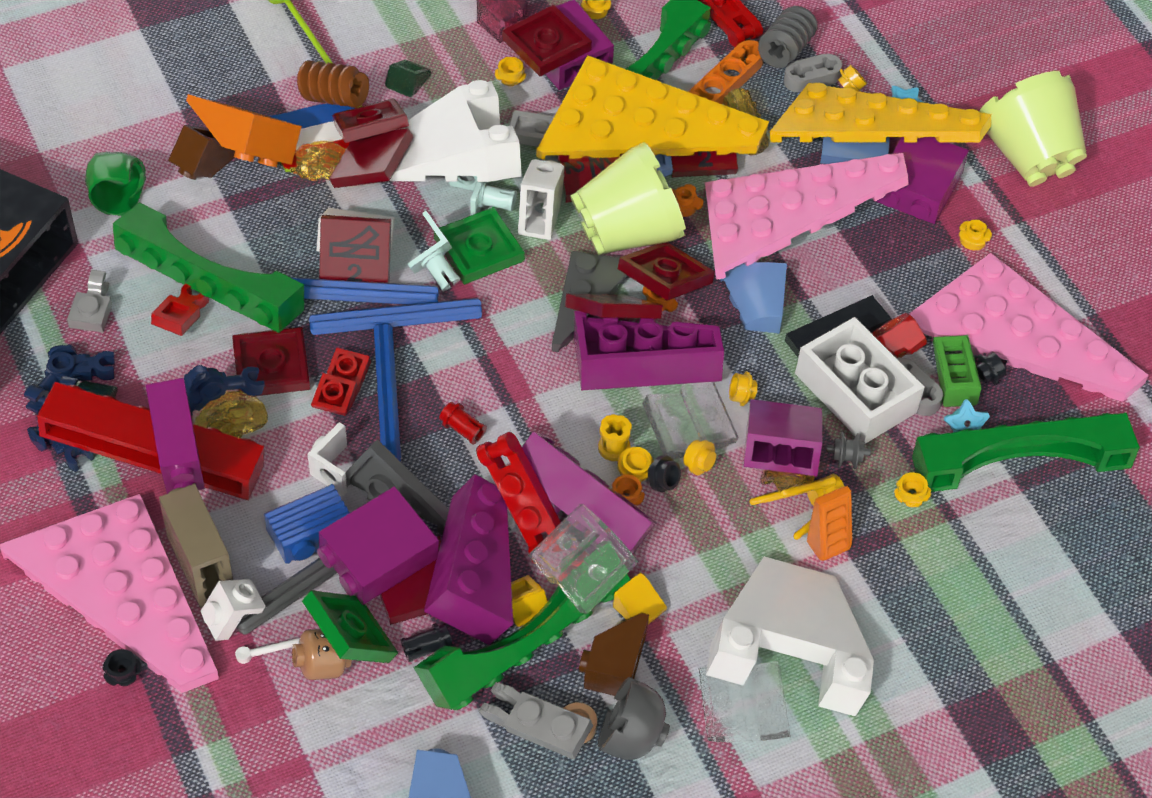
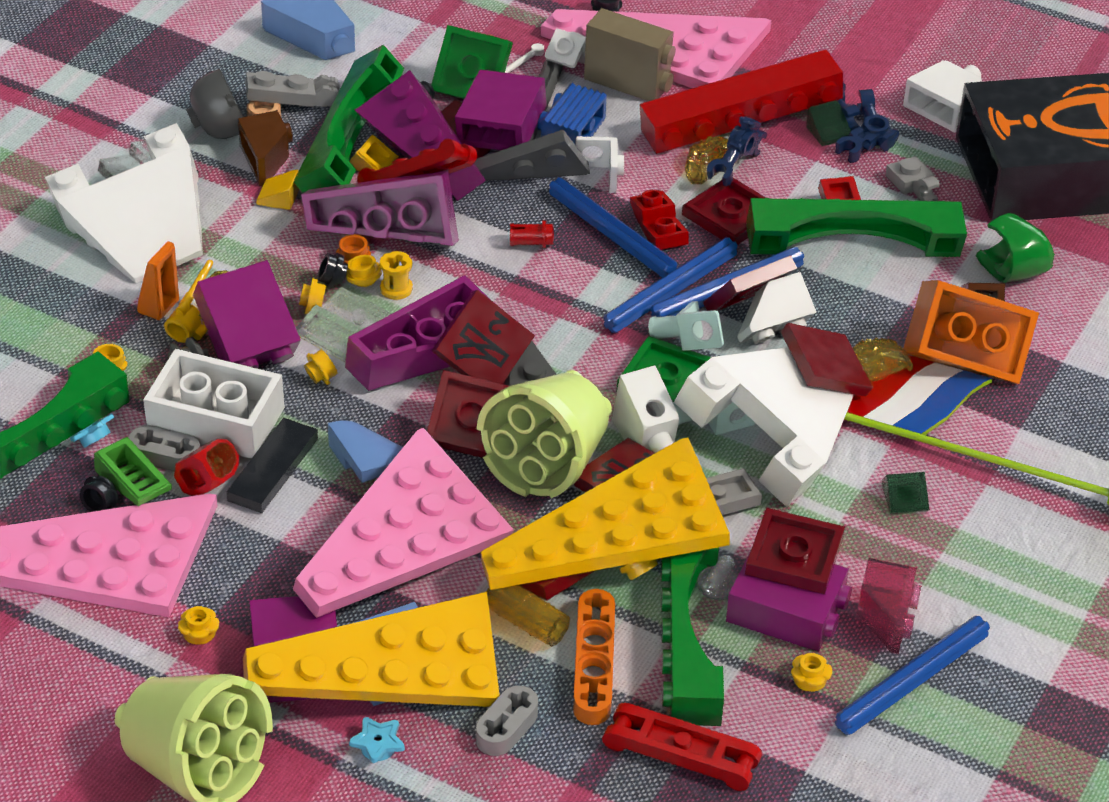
camera: 145 degrees right, 10 degrees down
(174, 434) = (703, 57): magenta brick -> none
(332, 84) = (947, 412): dark orange piece -> none
(370, 120) = (868, 393): dark red tile -> none
(583, 558) = (334, 146): clear slope -> none
(688, 199) = (519, 506): orange plate -> none
(787, 36) = (561, 721): dark grey piece -> none
(851, 79) = (444, 729): yellow plate -> none

